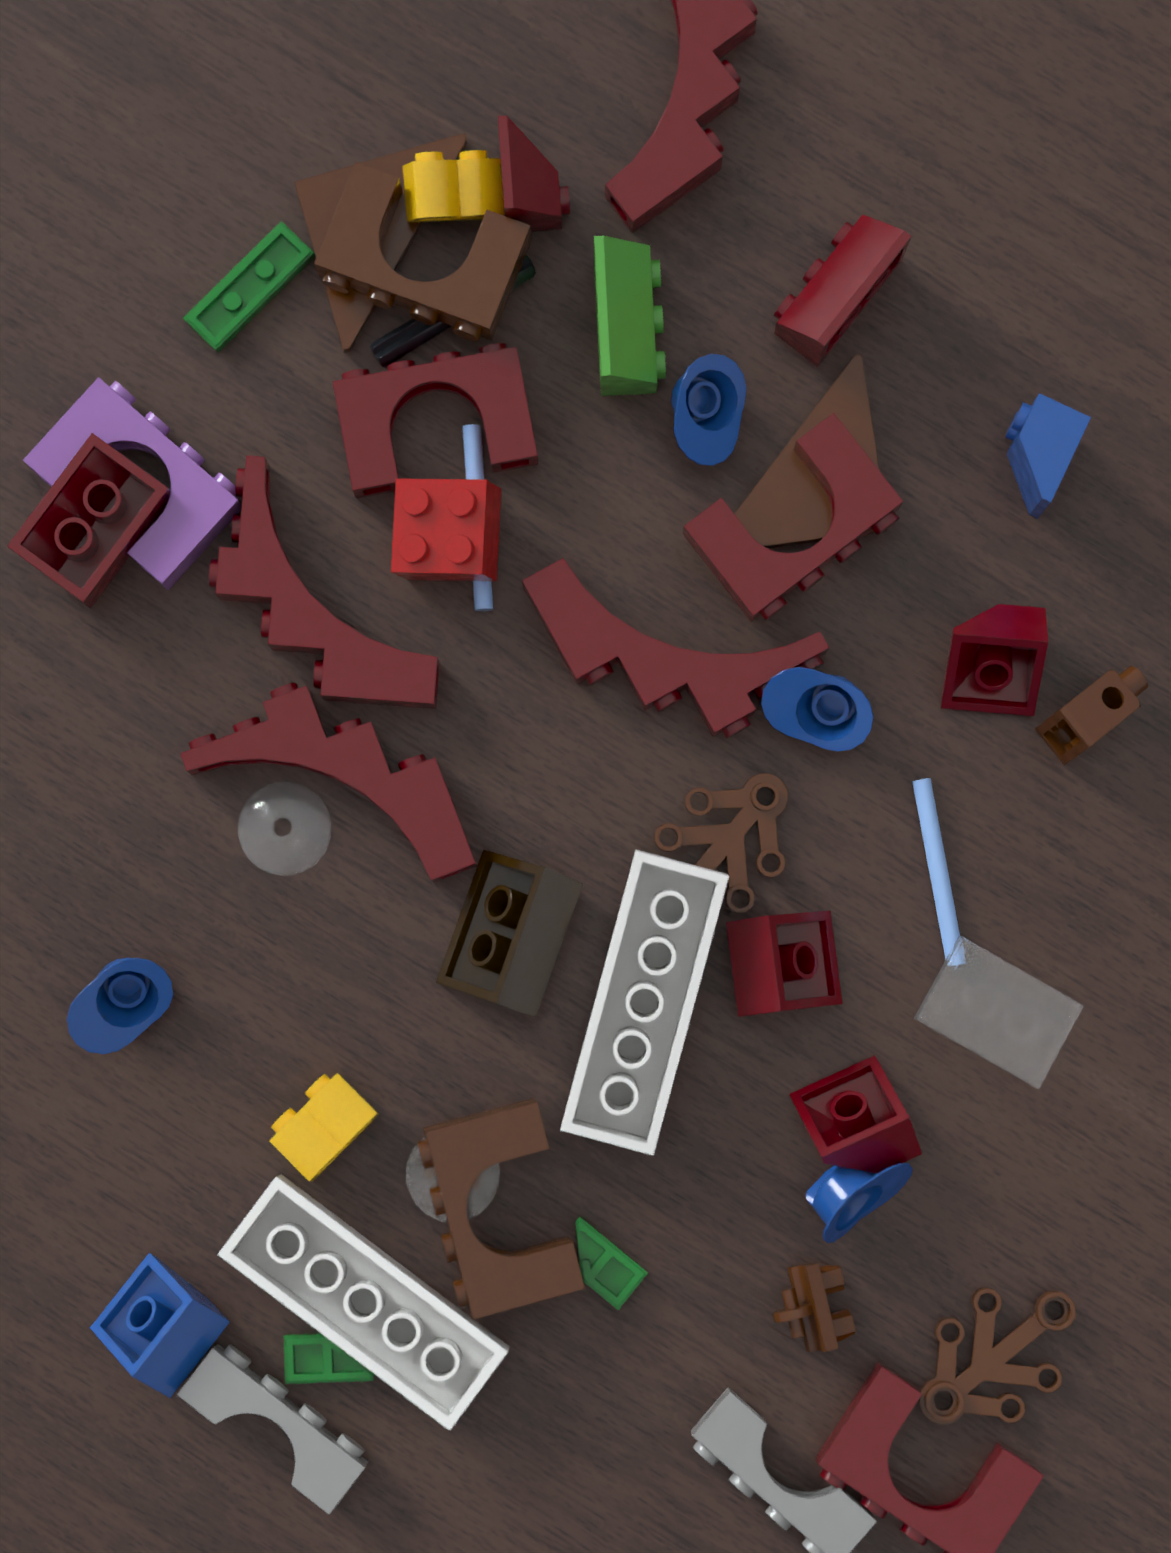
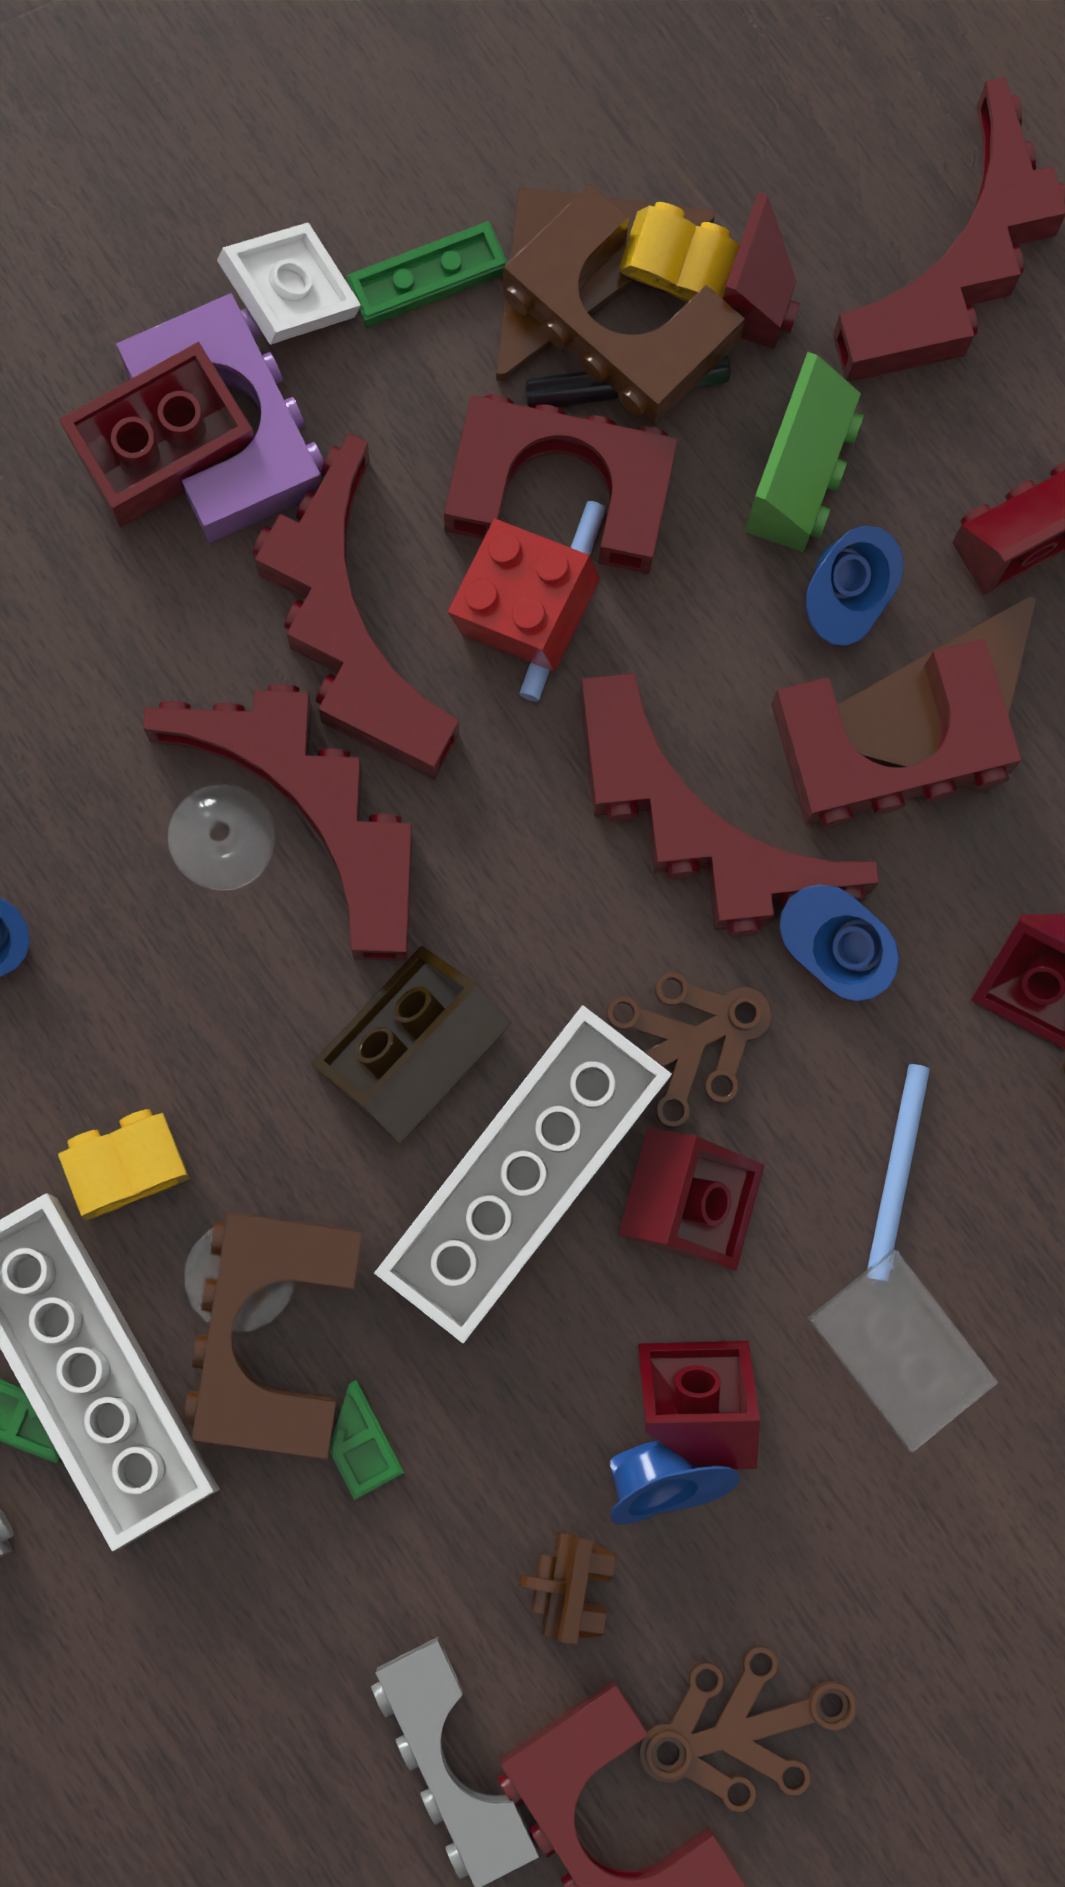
camera: 15 degrees right, 5 degrees down
(140, 346) = (288, 283): none -> white plate

